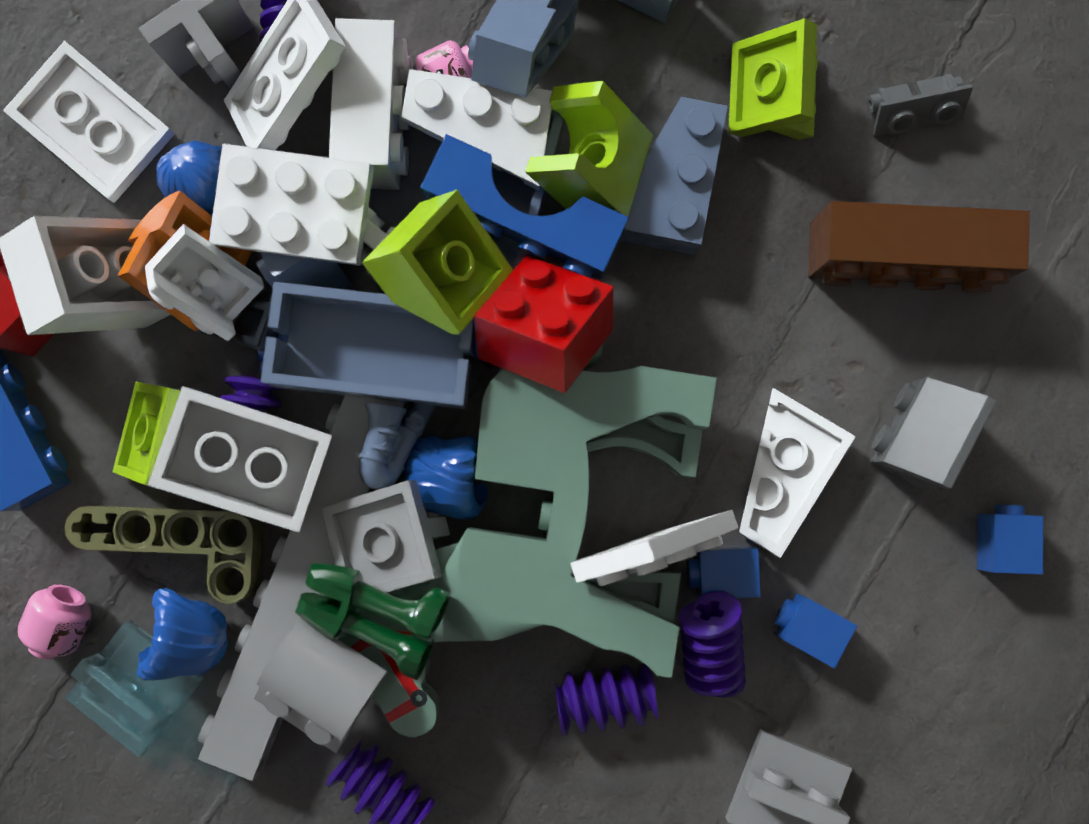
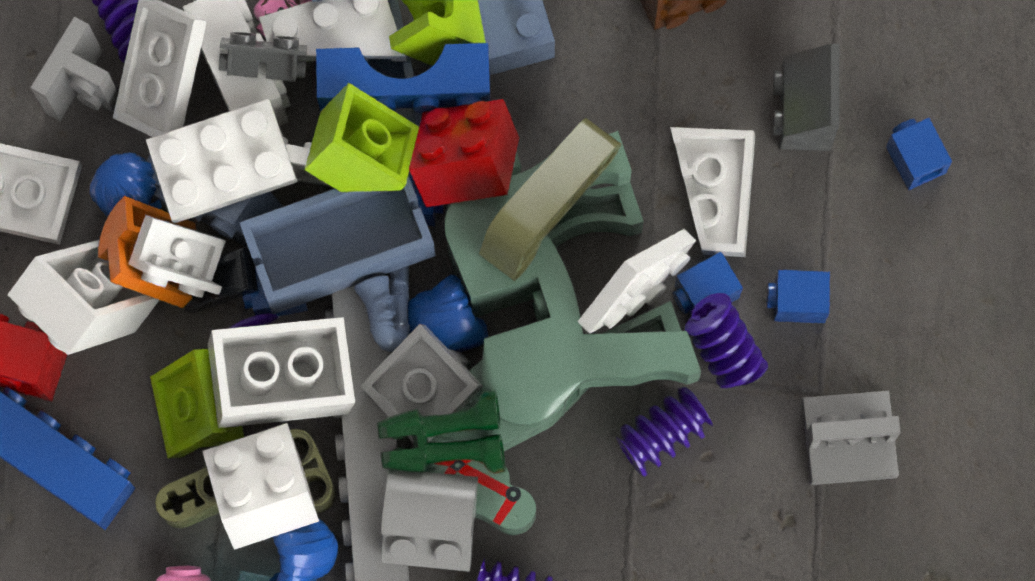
camera: 25 degrees left, 10 degrees down
(162, 567) = (260, 486): none -> white brick
(373, 101) = (279, 55): none -> dark grey hinge
(606, 418) = (546, 197): none -> olive beam

